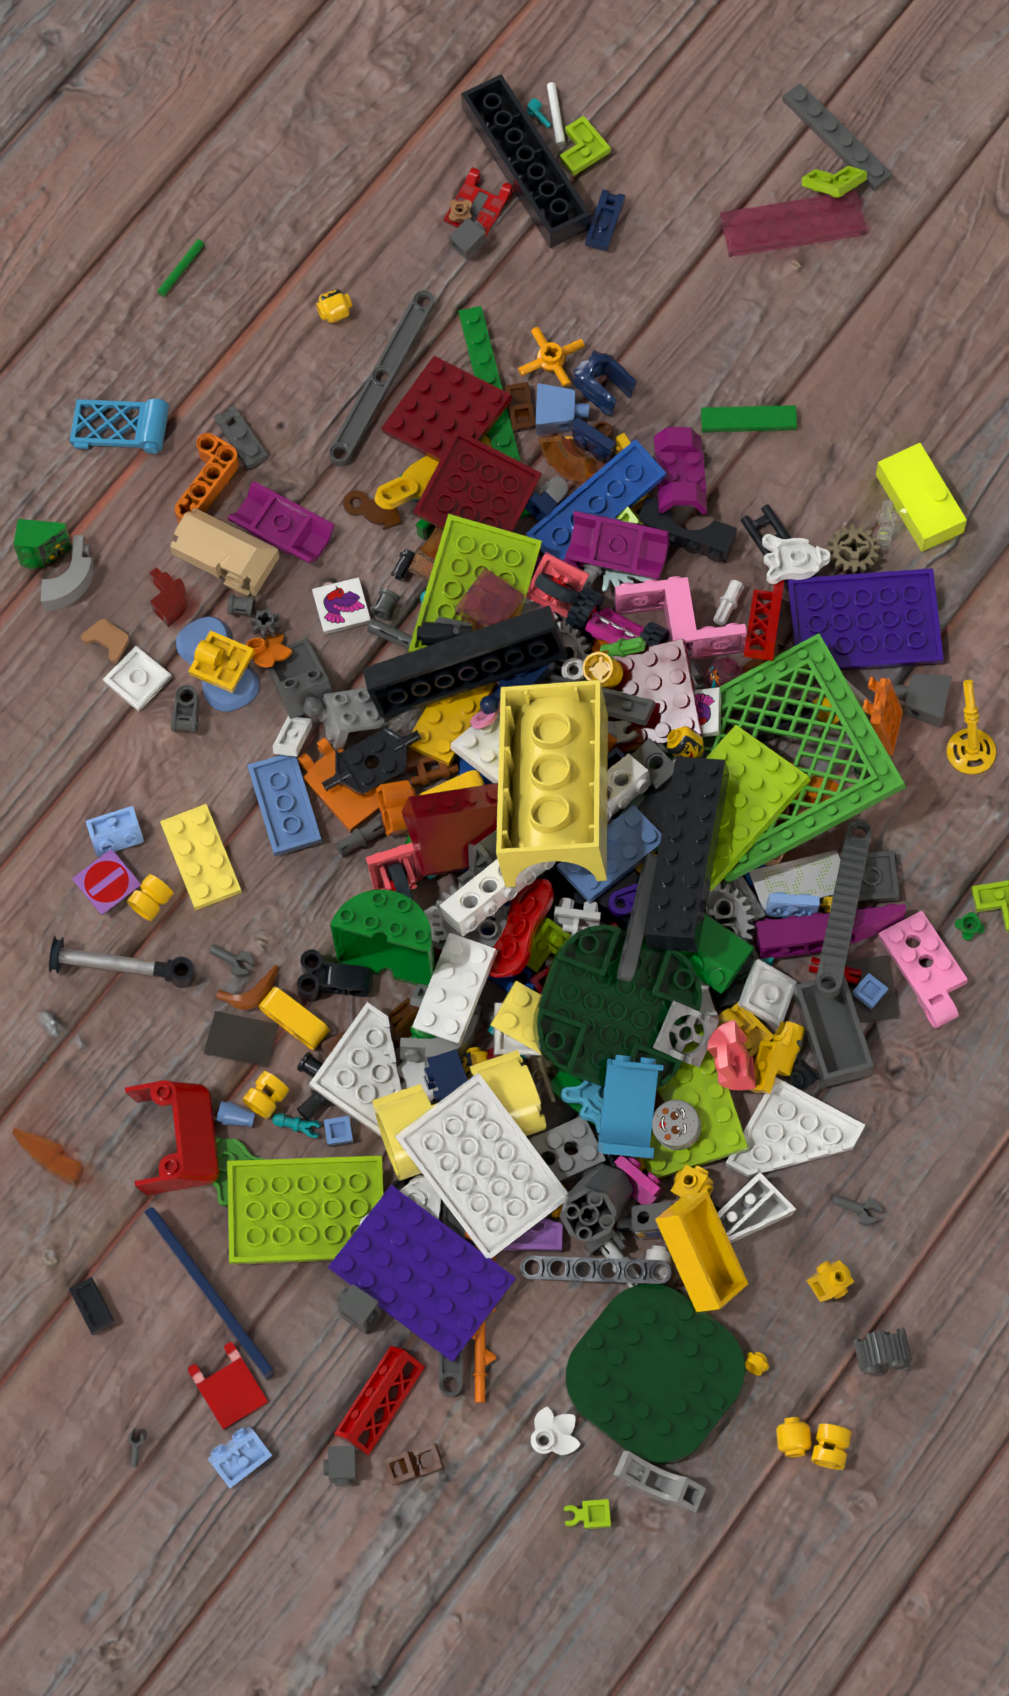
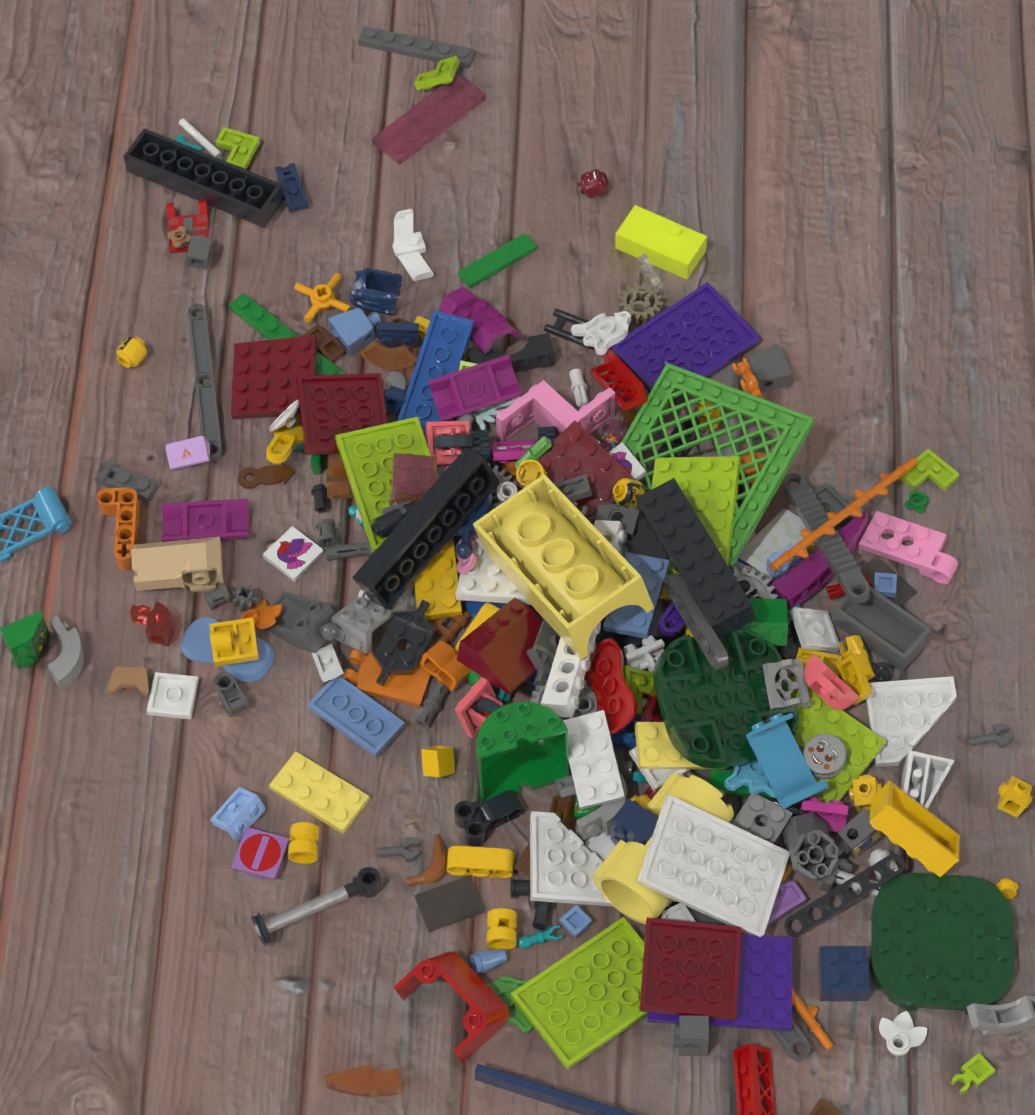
camera: 35 degrees left, 10 degrees down
(314, 443) = (188, 452): none -> lavender slope
(325, 896) = (438, 761): none -> yellow panel
(395, 1247) = (690, 969): none -> dark red plate
(422, 465) = (286, 418): none -> white dish
(541, 1342) = (843, 973): none -> dark blue brick
(675, 351) = (409, 245): none -> white plate
(864, 895) = (835, 518): none -> orange plant
(901, 393) = (593, 183): none -> dark red head
(971, 744) = (824, 383): yellow dish -> none

